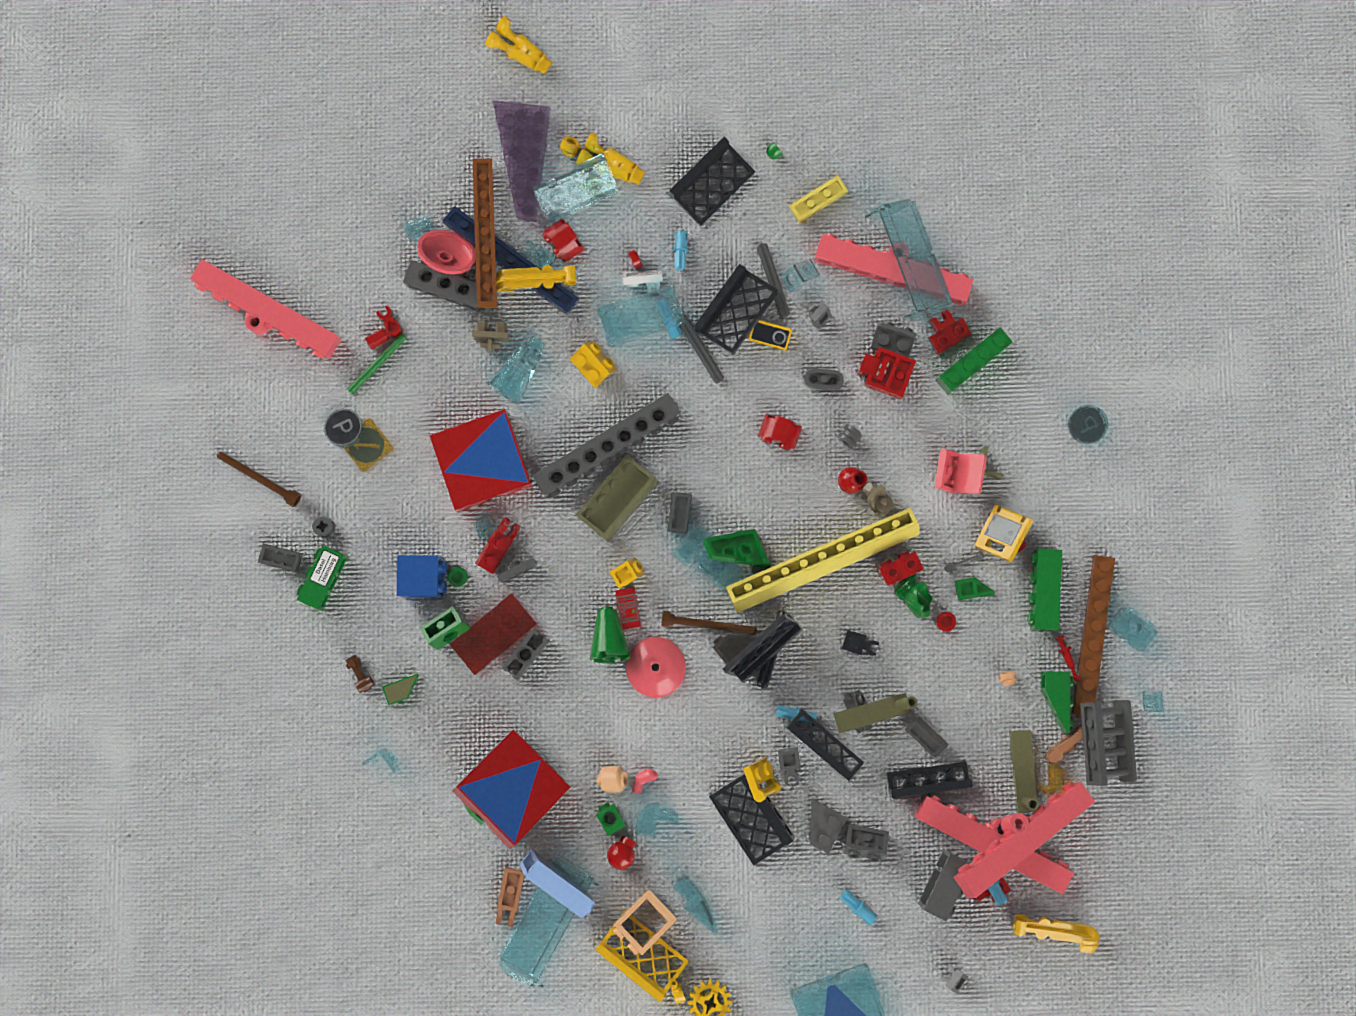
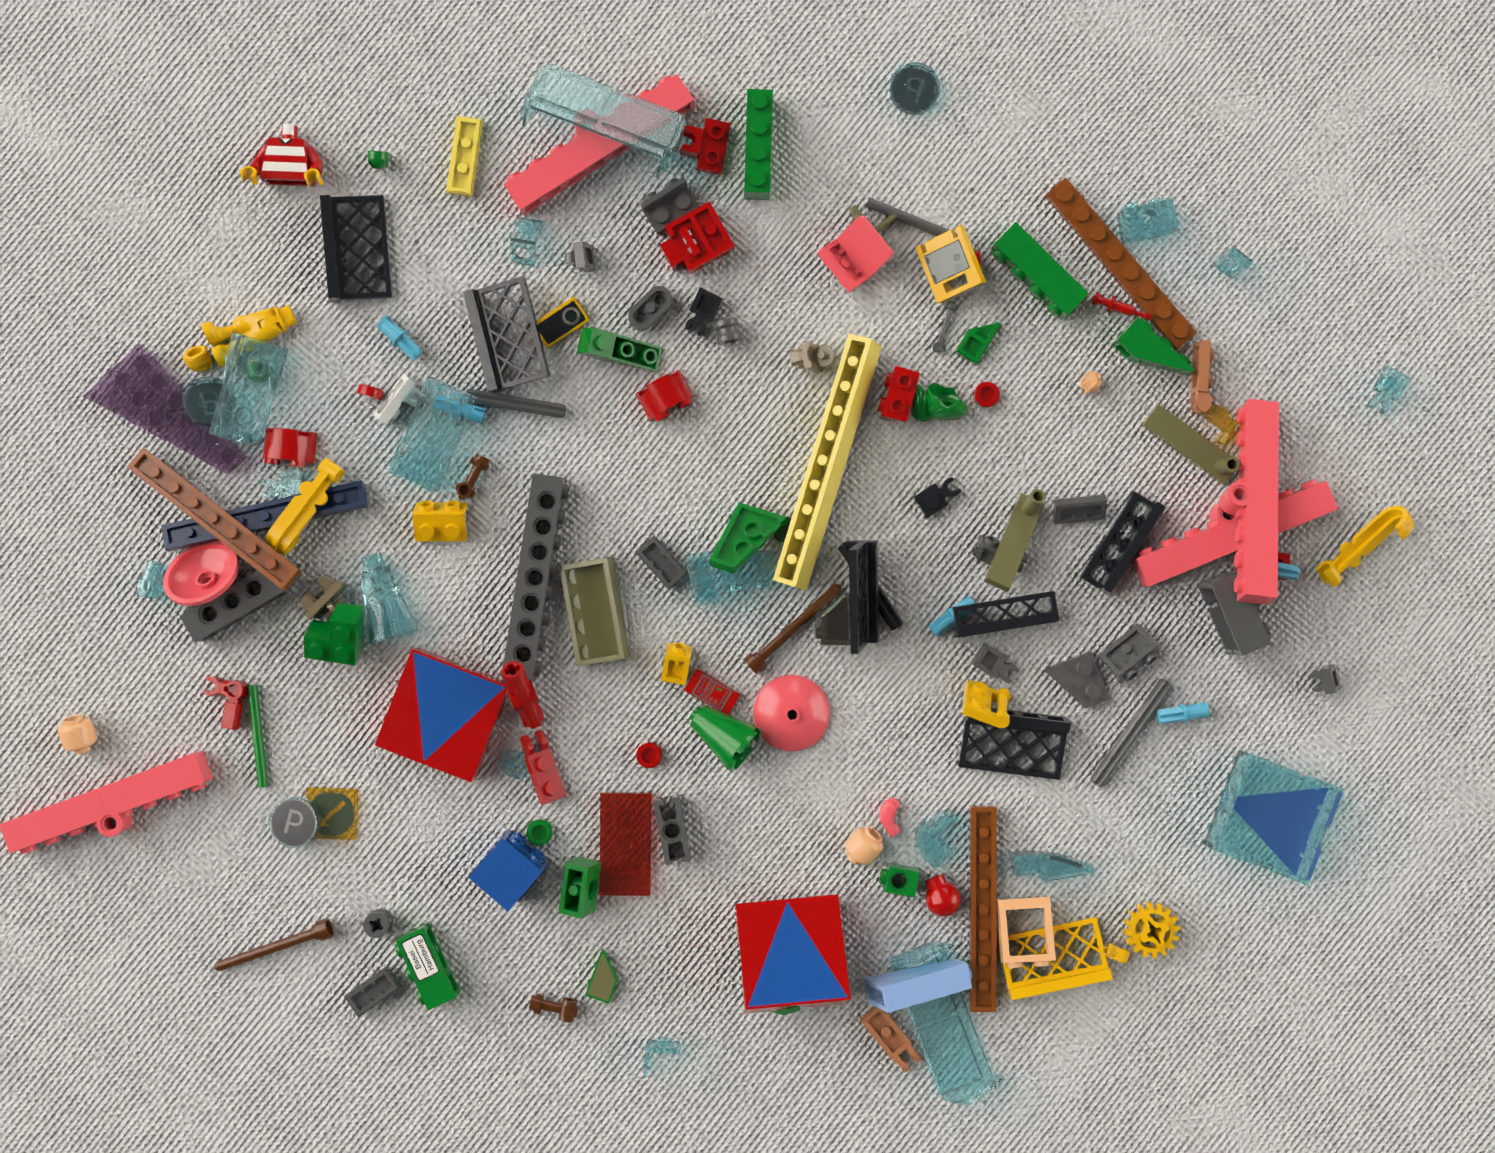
camera: 55 degrees left, 5 degrees up
(291, 259) = (77, 734): none -> light nougat head
(475, 363) = (339, 639): none -> green brick
(517, 569) = (581, 769): dark grey plate -> none
(523, 50) = (57, 321): yellow piece -> none
(532, 496) = (522, 694): none -> red piece
(548, 168) = (201, 399): none -> clear light blue tile
(558, 603) = (649, 755): none -> red tile
(624, 362) = (466, 489): none -> reddish brown bar
(635, 885) = (983, 908): none -> dark orange plate
(726, 101) = (285, 161): none -> torso
(773, 279) = (507, 271): dark grey axle -> none
(783, 381) = (618, 349): none -> green slope
(819, 885) = (1131, 732): none -> dark grey axle
(852, 411) = (705, 307): none -> black plate
(852, 480) = (773, 366): red piece -> none
(1008, 483) = (906, 217): none -> dark grey bar
(1094, 745) = (1225, 354): dark grey fence -> none
(1164, 862) = (1389, 386): none -> clear light blue plate

